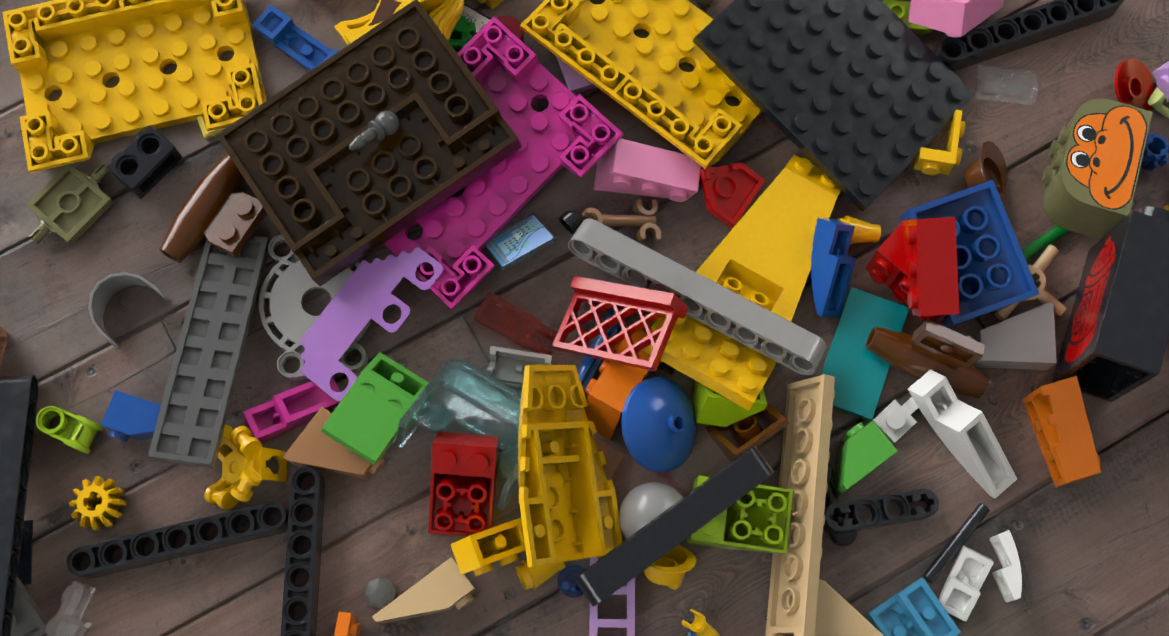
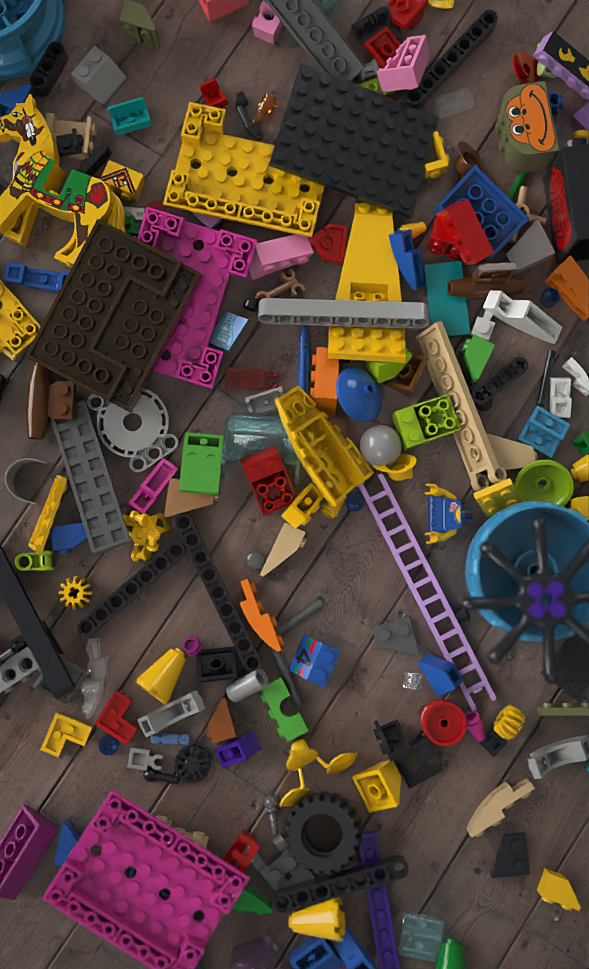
camera: 30 degrees left, 10 degrees up
(118, 377) = (48, 513): none -> yellow wing
(355, 304) = (156, 414): medium lavender piece -> none
(385, 124) = (121, 302): dark grey bar -> none
(619, 297) = (309, 333): fence -> none
(674, 525) = (396, 444): black beam -> none
(1018, 426) = (549, 297): none -> clear blue tile

